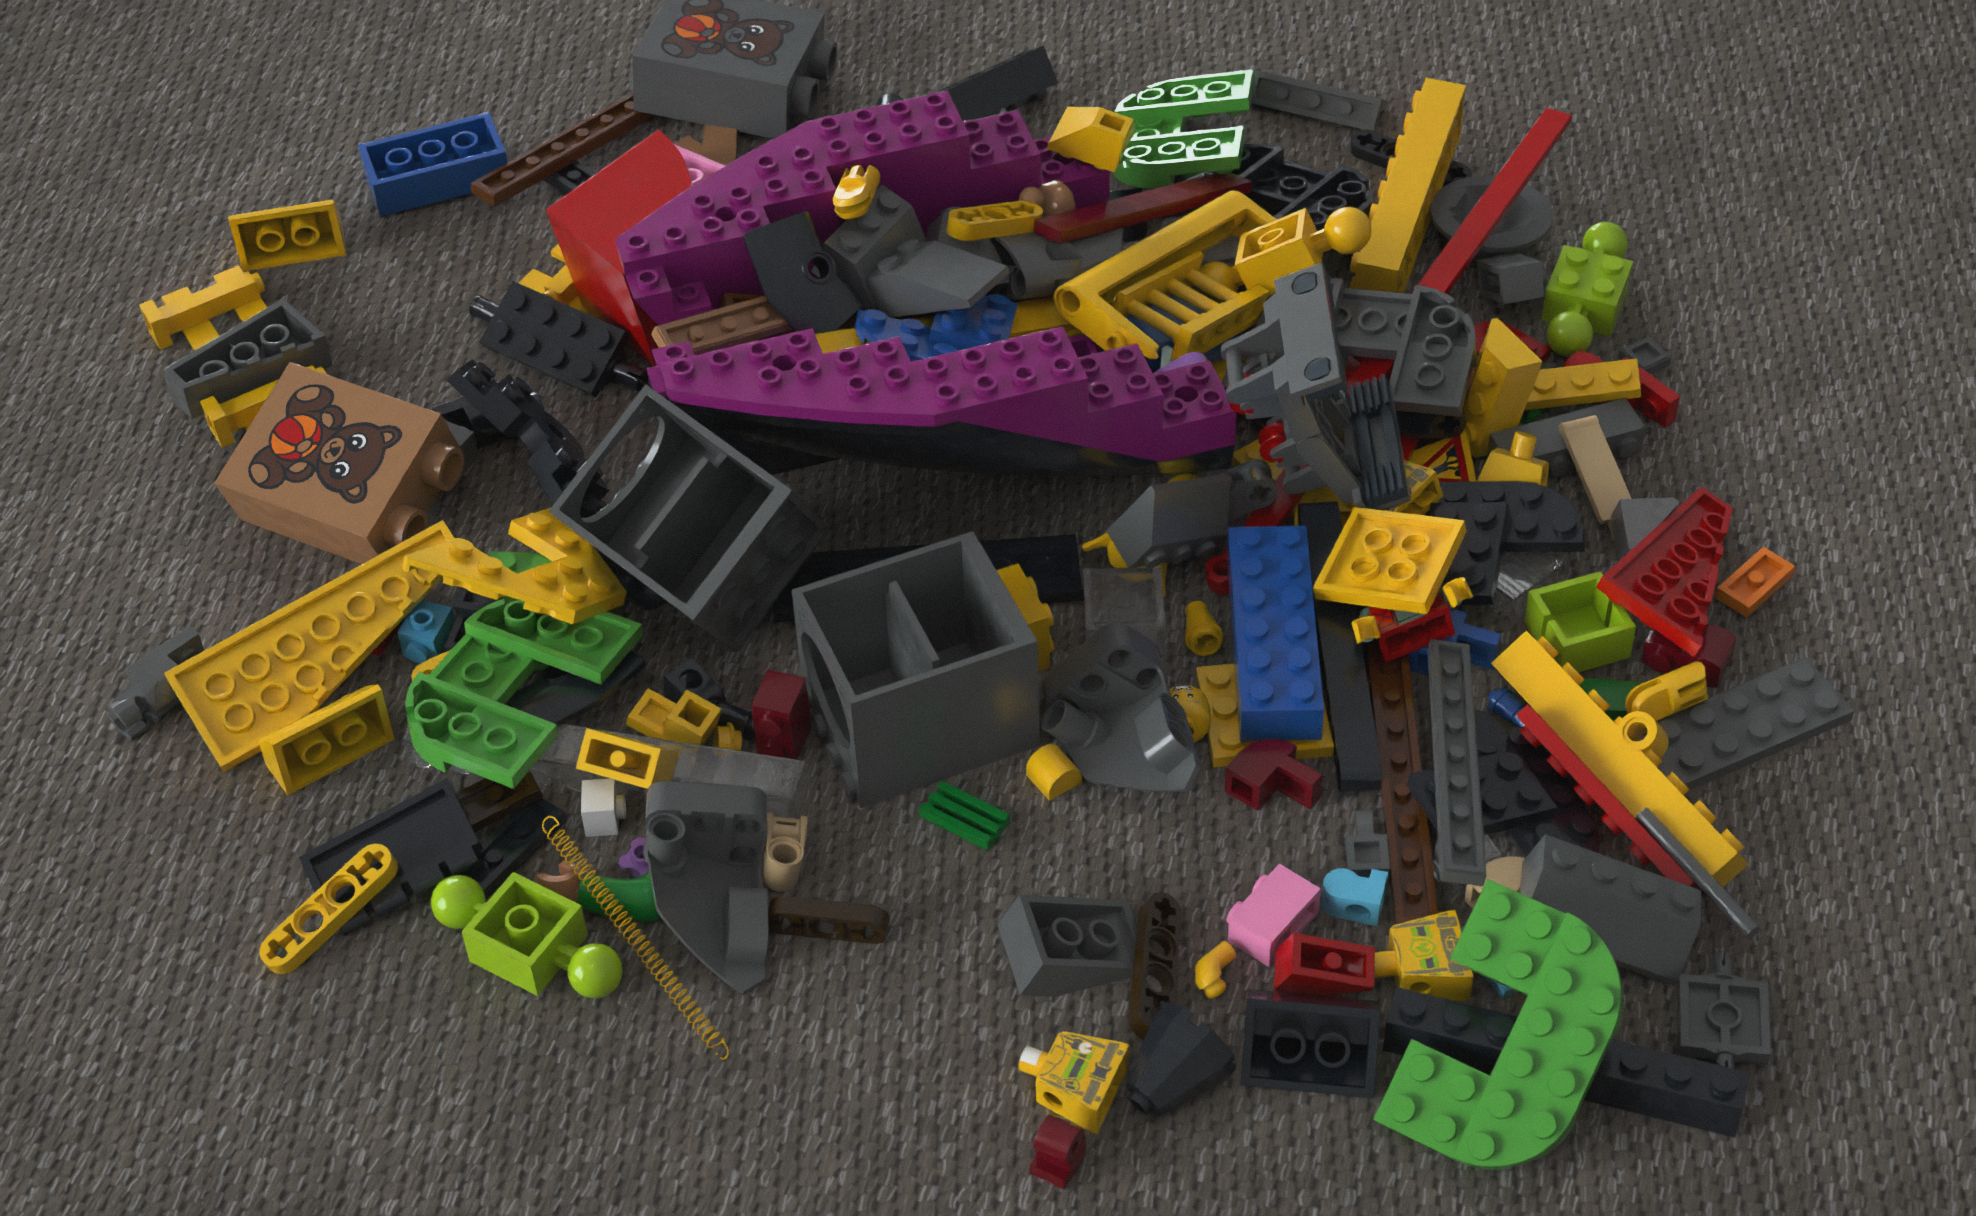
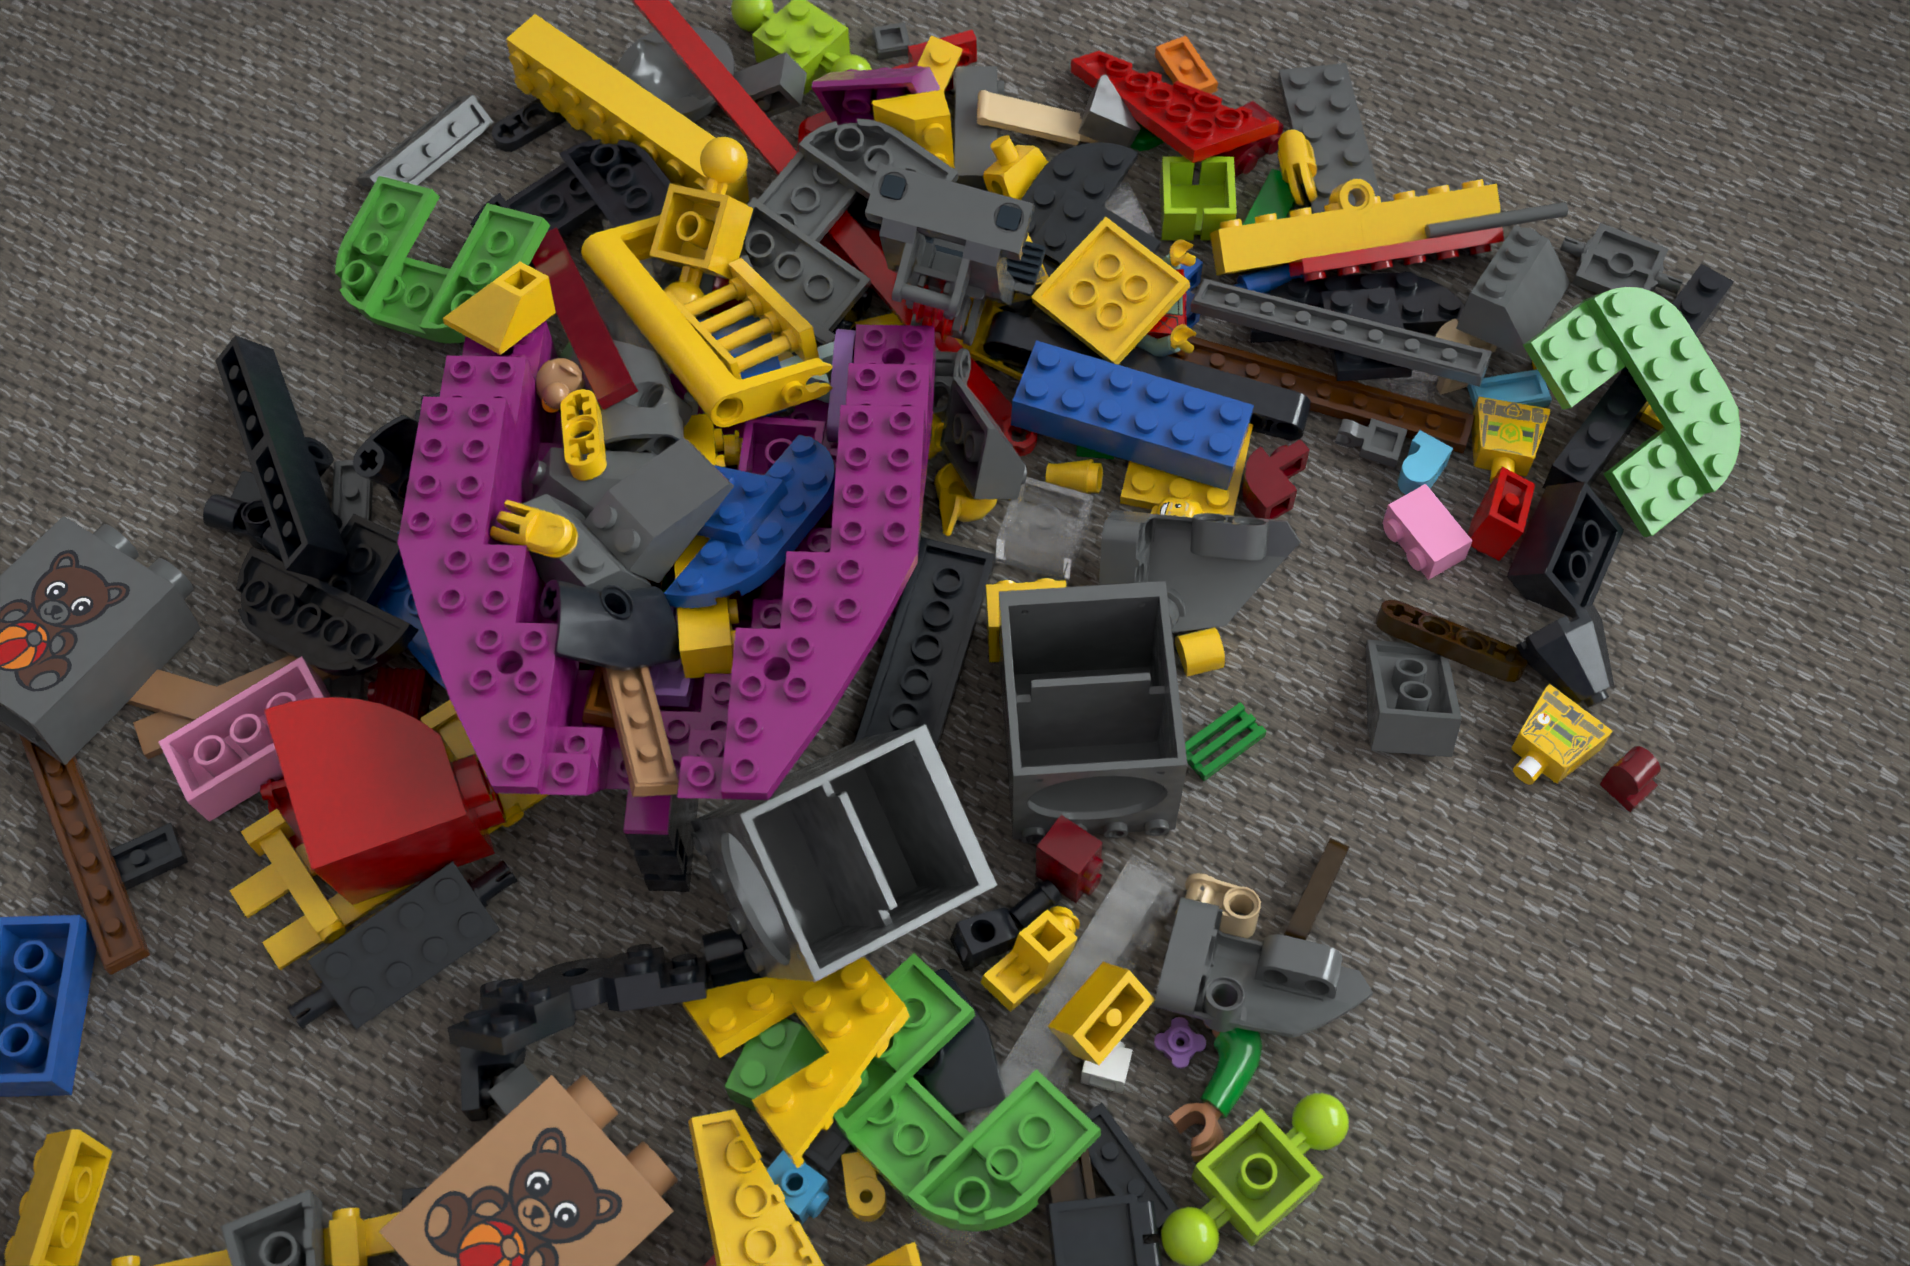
camera: 70 degrees left, 15 degrees up
(632, 935) = (1289, 1070): yellow piece -> none
(1209, 969) = (1464, 602): yellow arm -> none
(1539, 332) = (850, 92): none -> magenta slope

